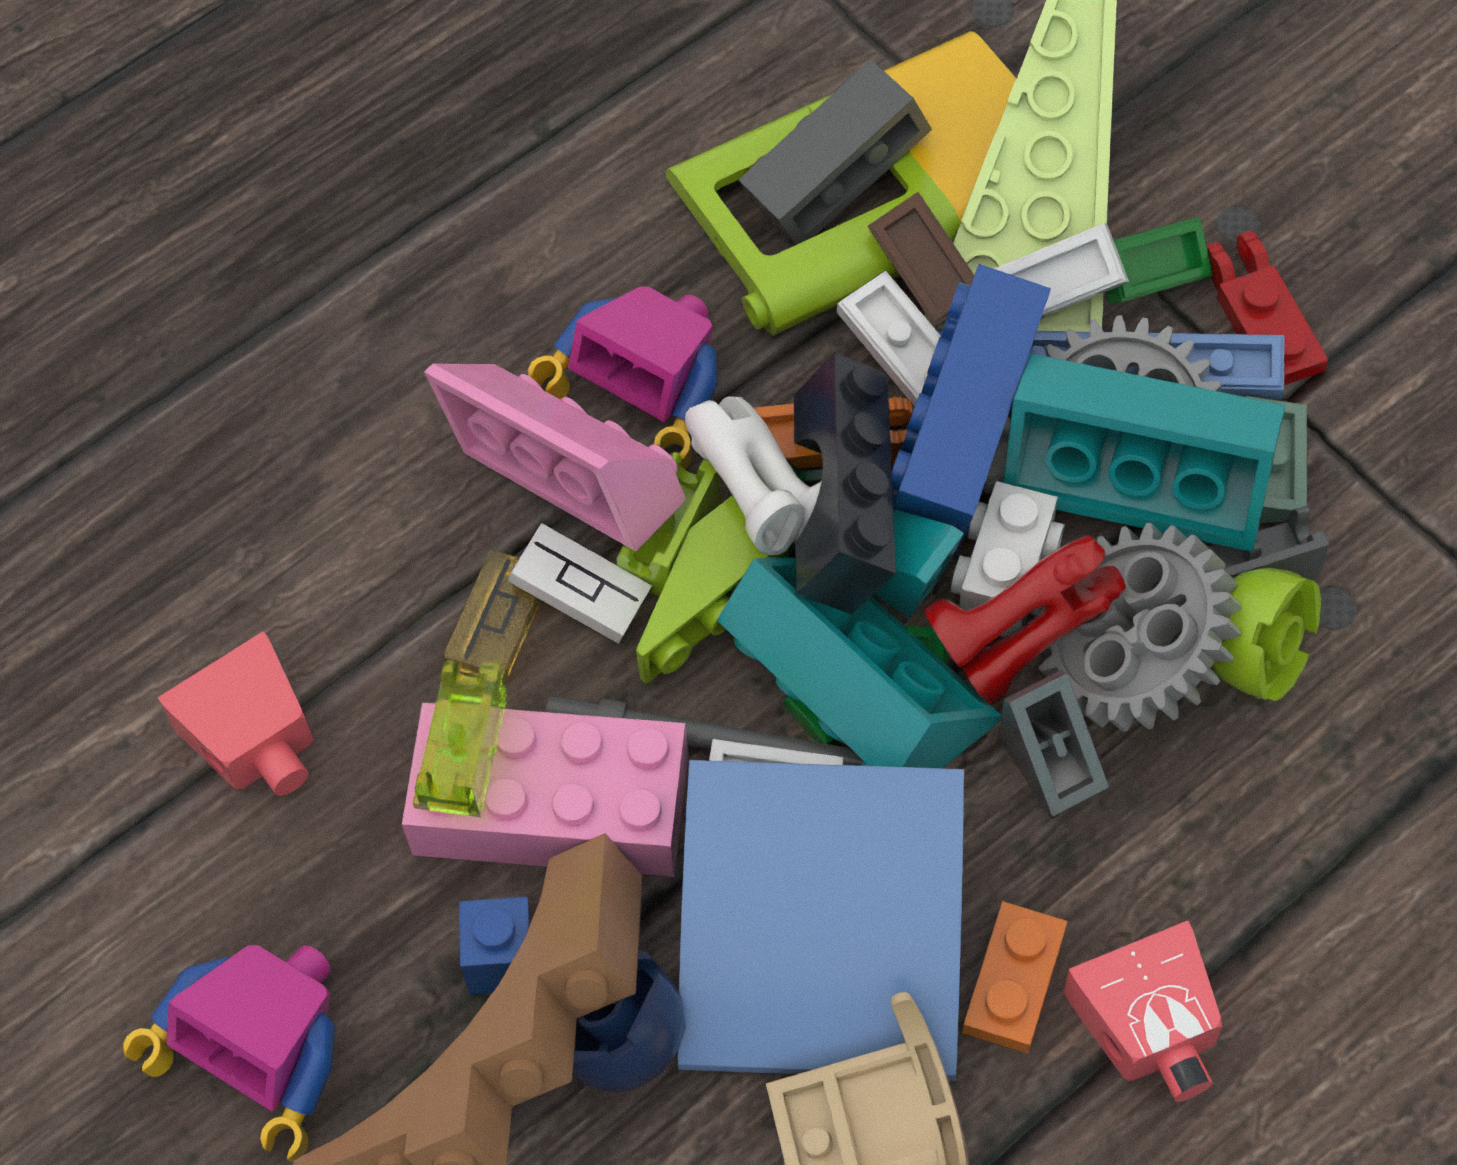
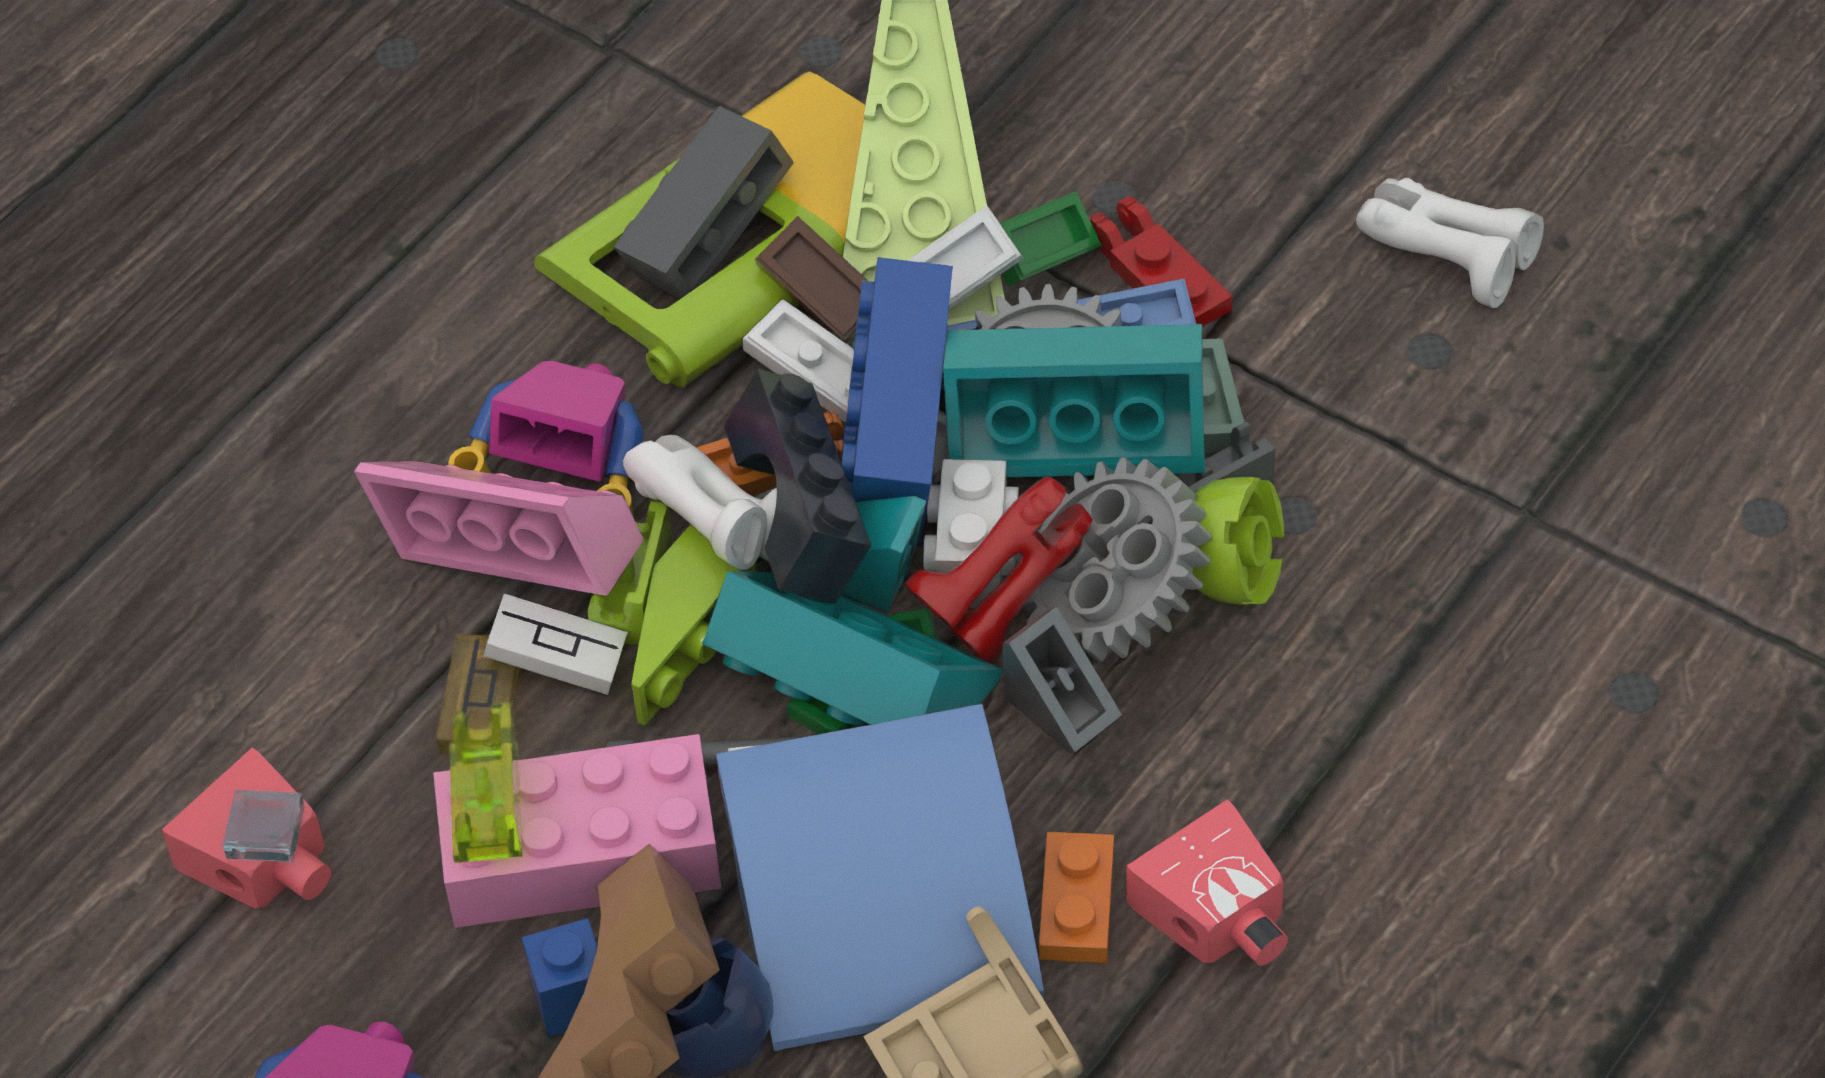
camera: 15 degrees left, 10 degrees down
(250, 719) = (263, 825): none -> clear light blue tile

